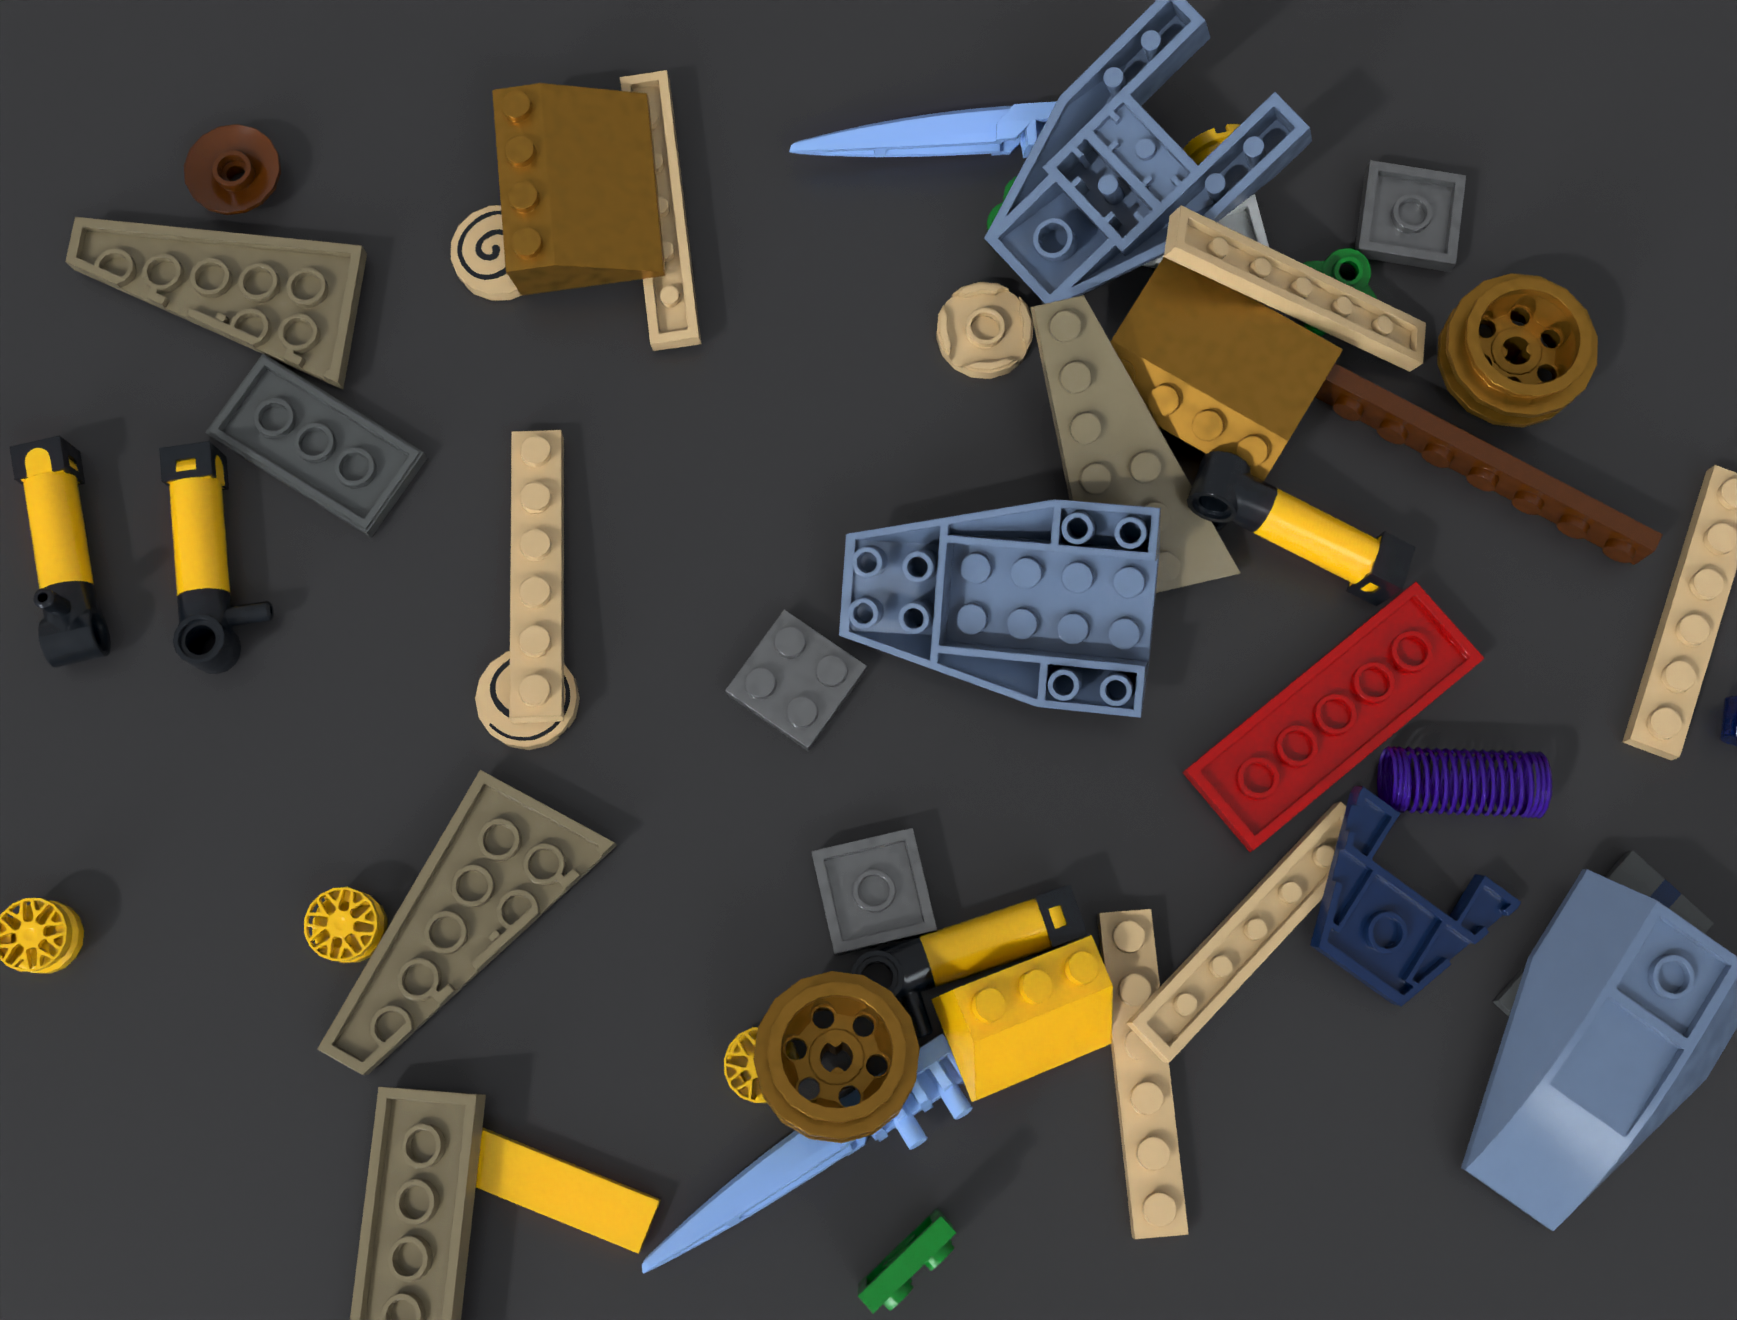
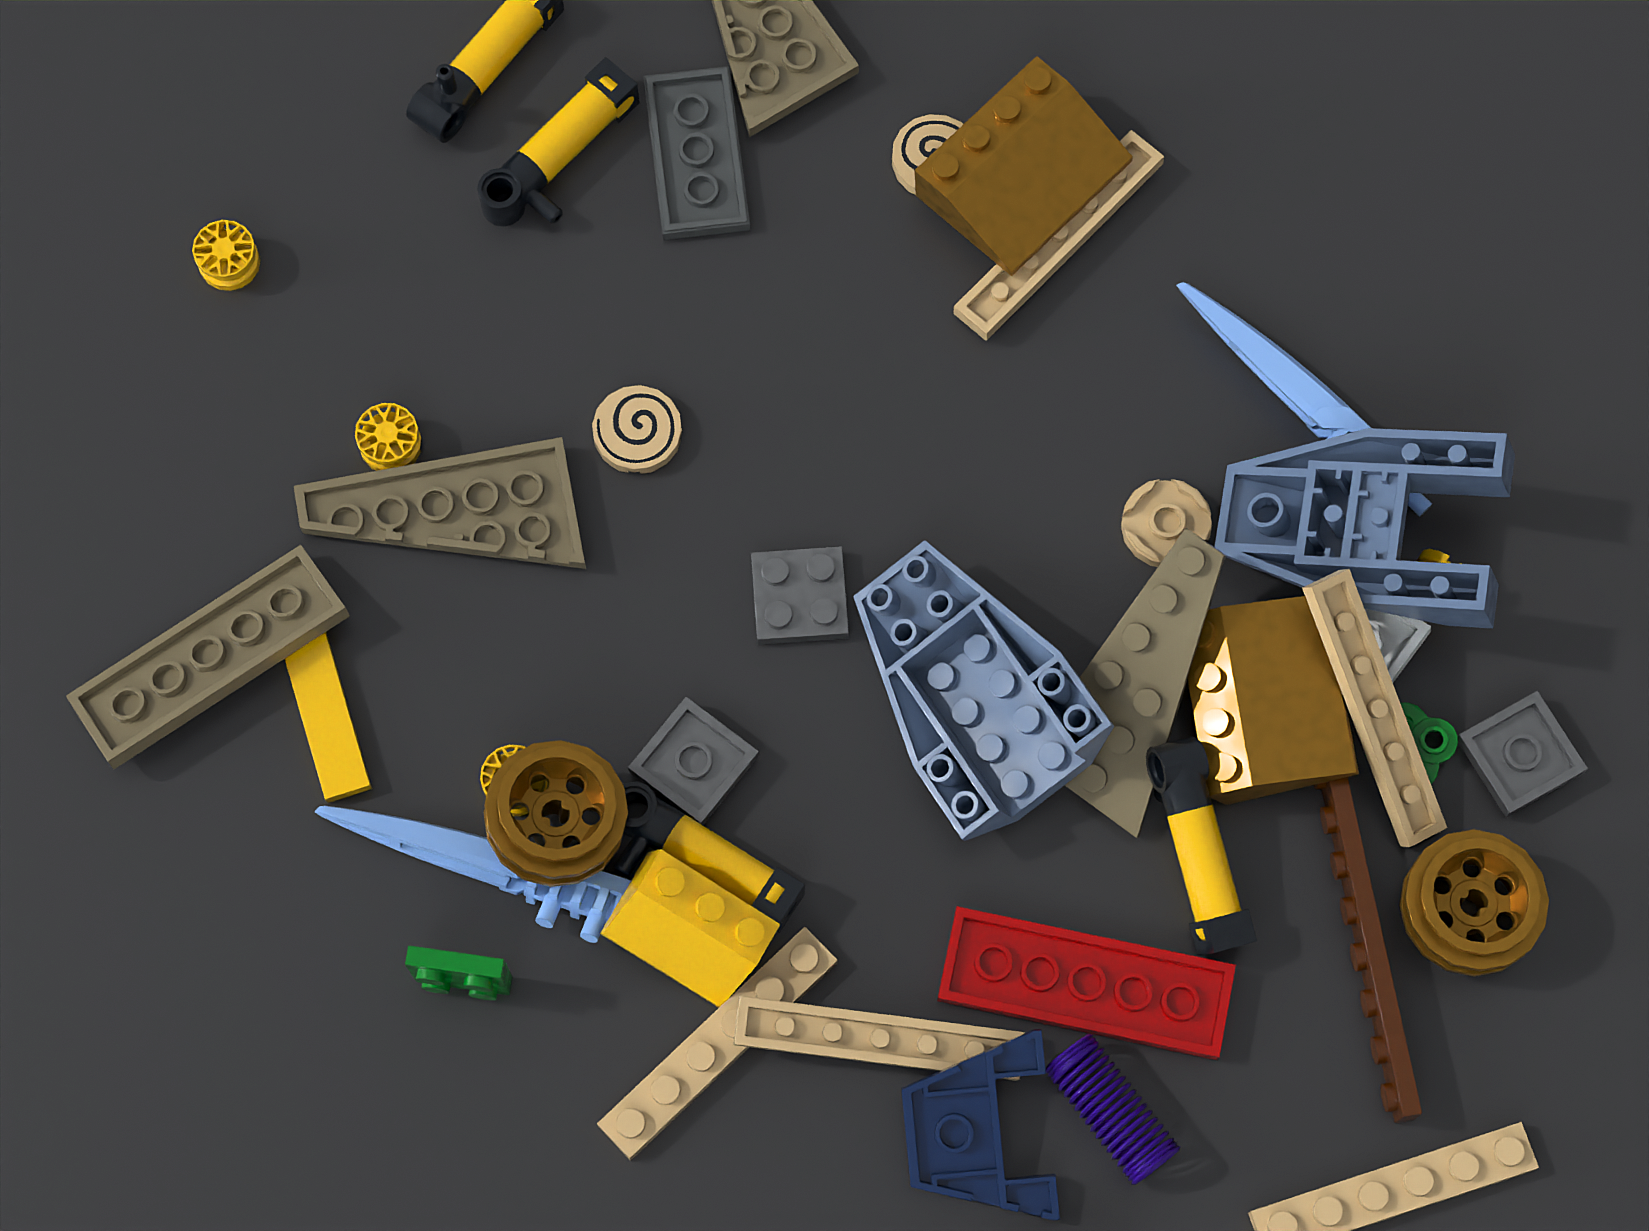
camera: 50 degrees right, 5 degrees down
(537, 577) = (726, 366): tan plate -> none

